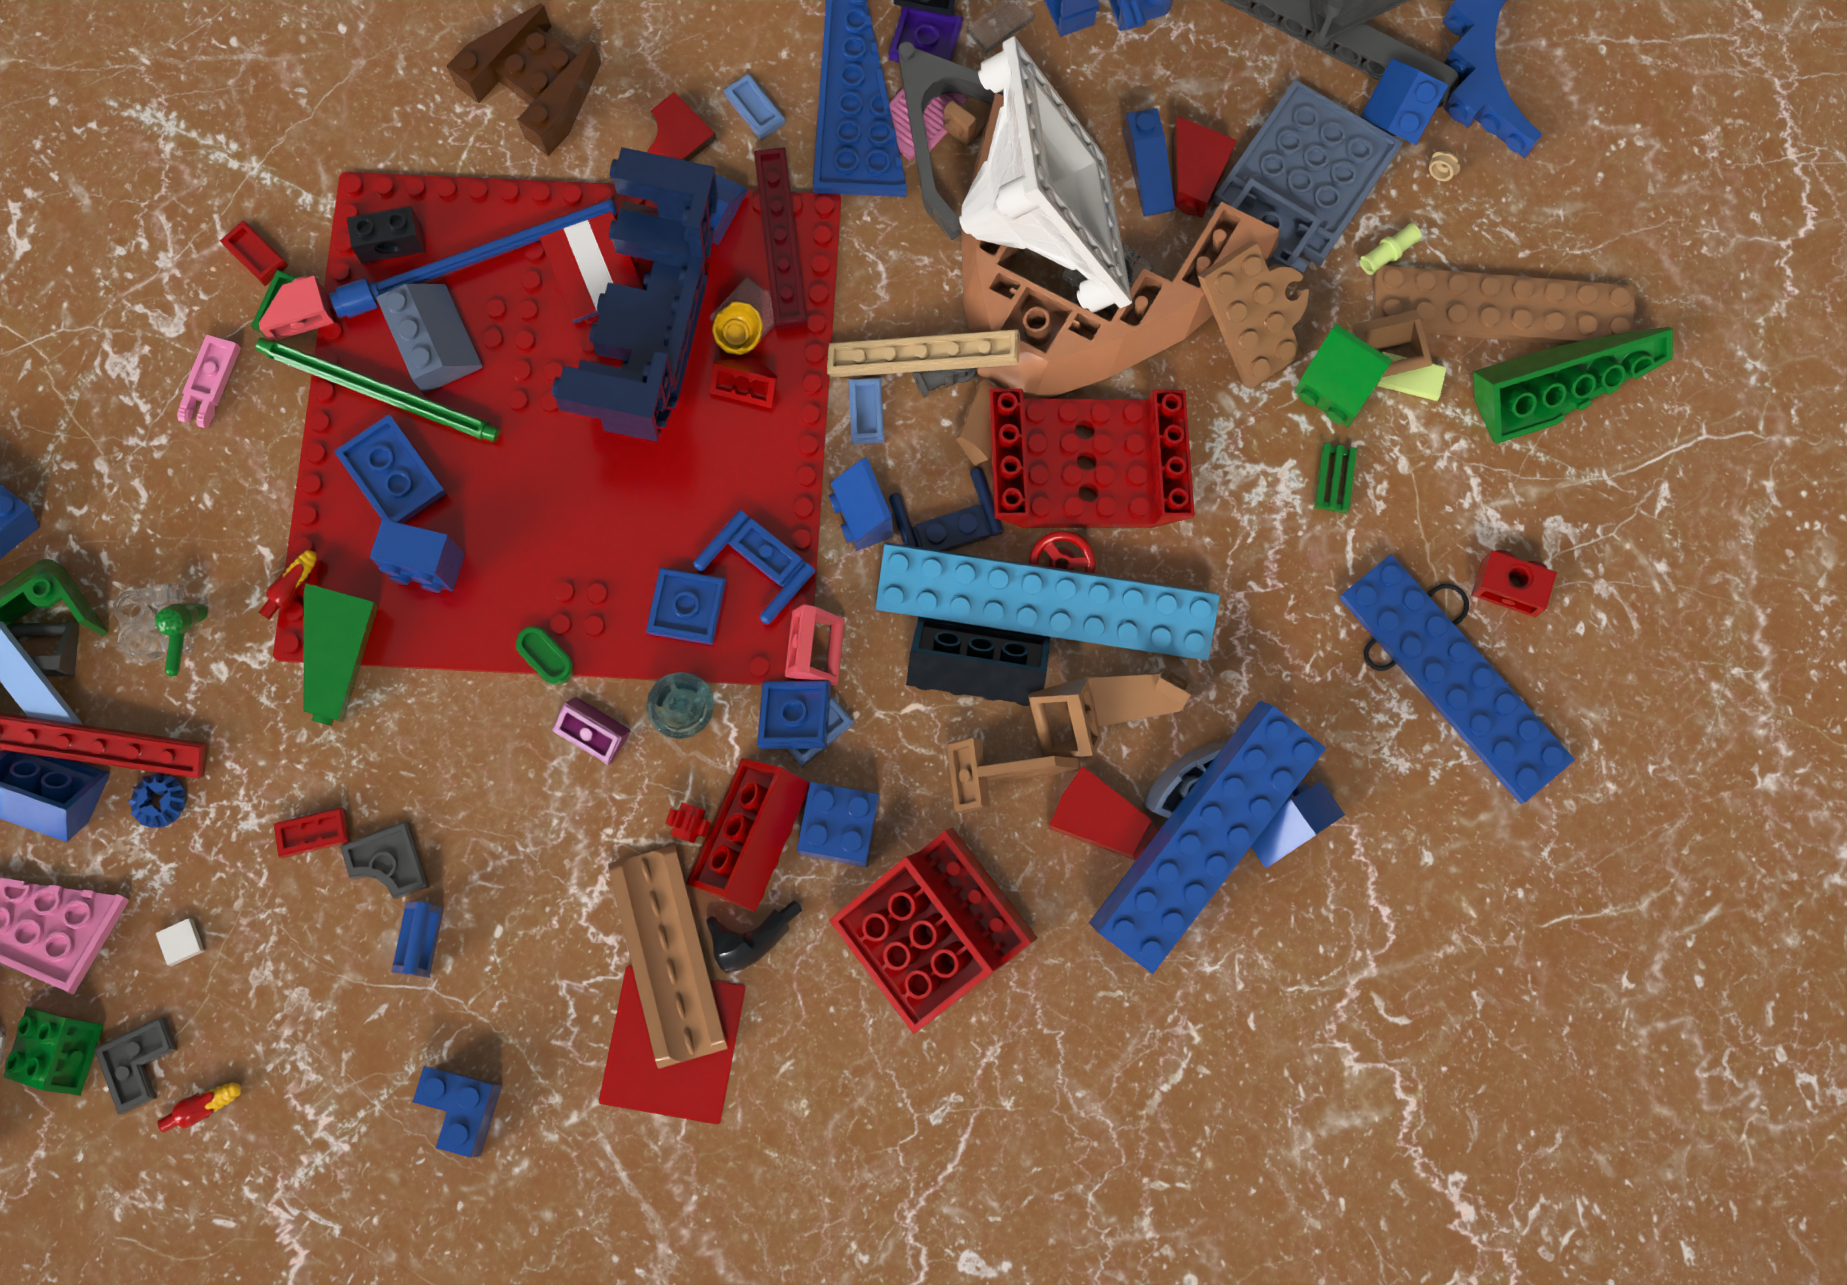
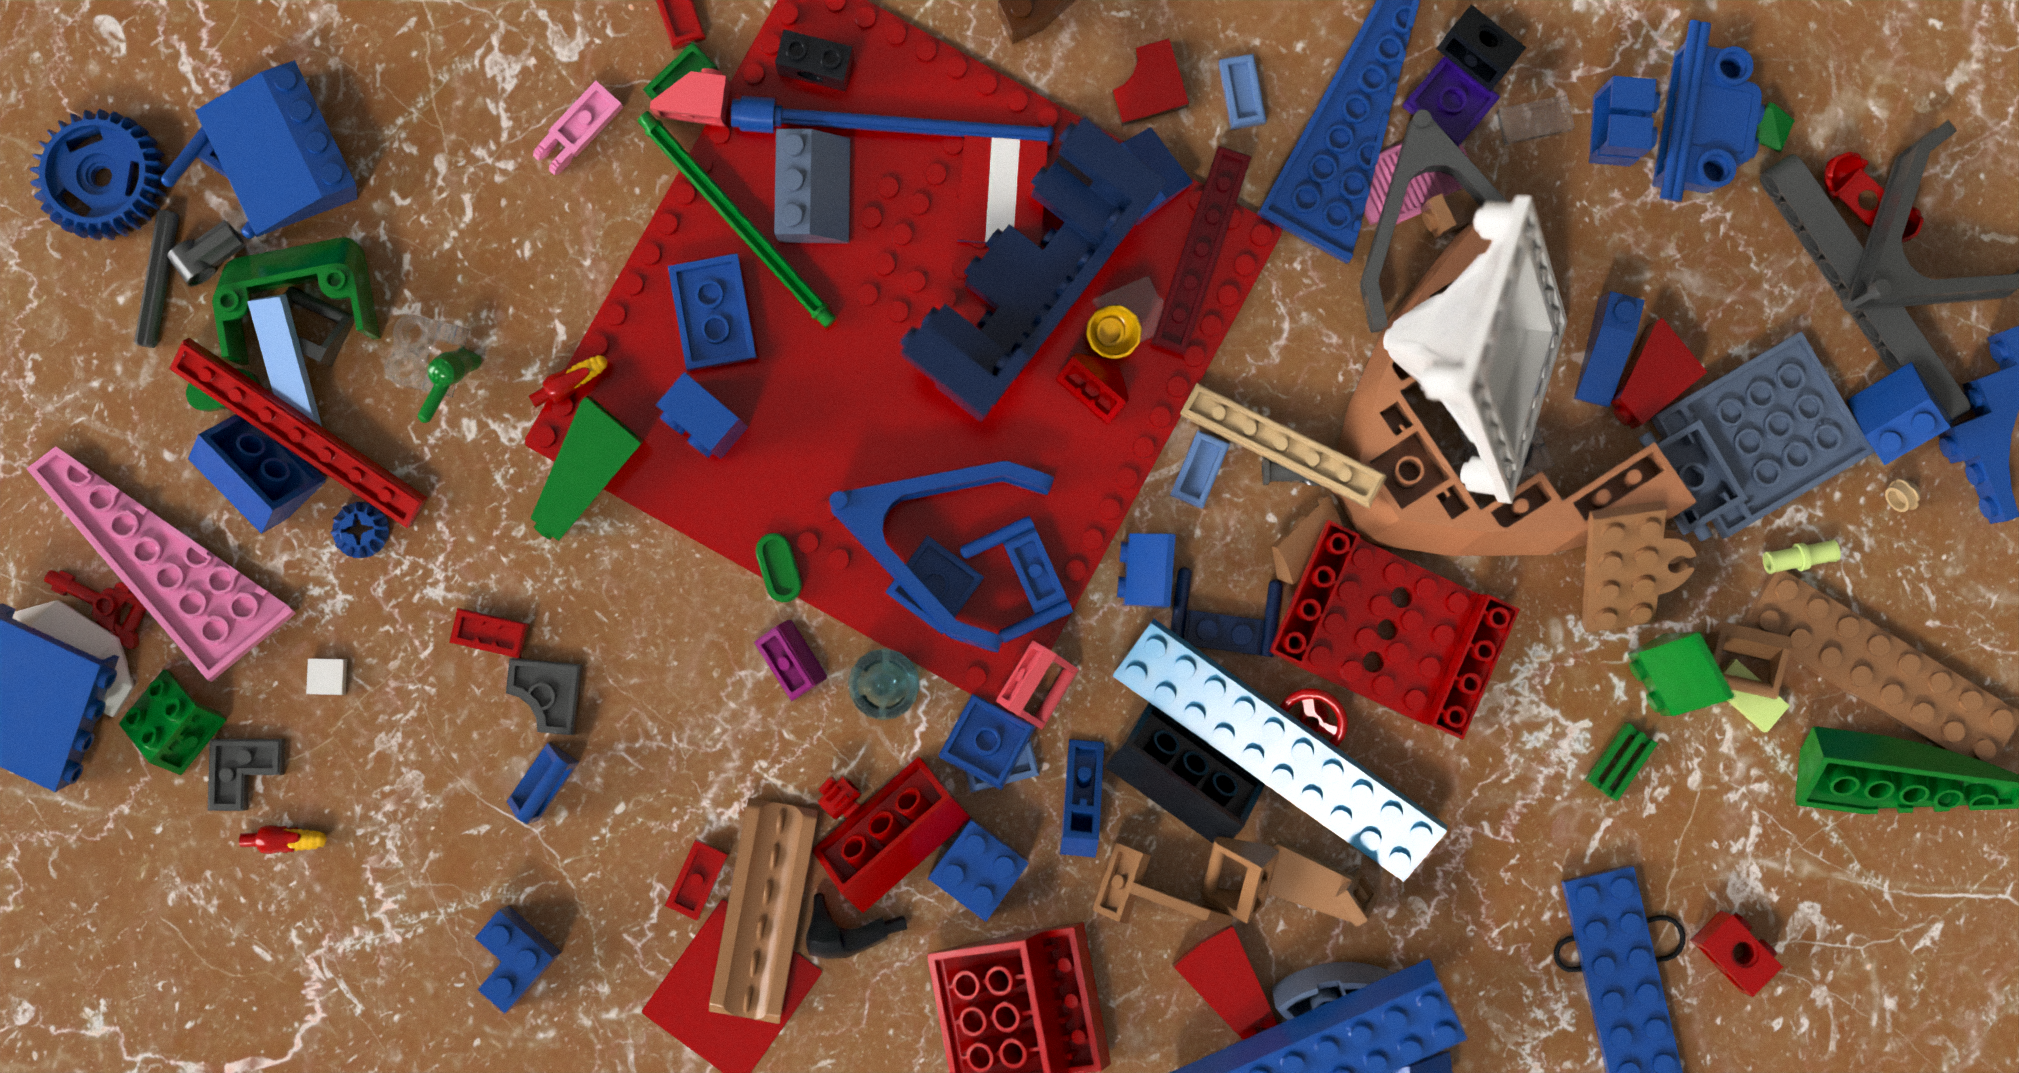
camera: 20 degrees right, 10 degrees up
(594, 957) = (696, 879): none -> red plate
(596, 564) = (866, 509): none -> blue piece
(900, 724) = (1082, 798): none -> blue slope

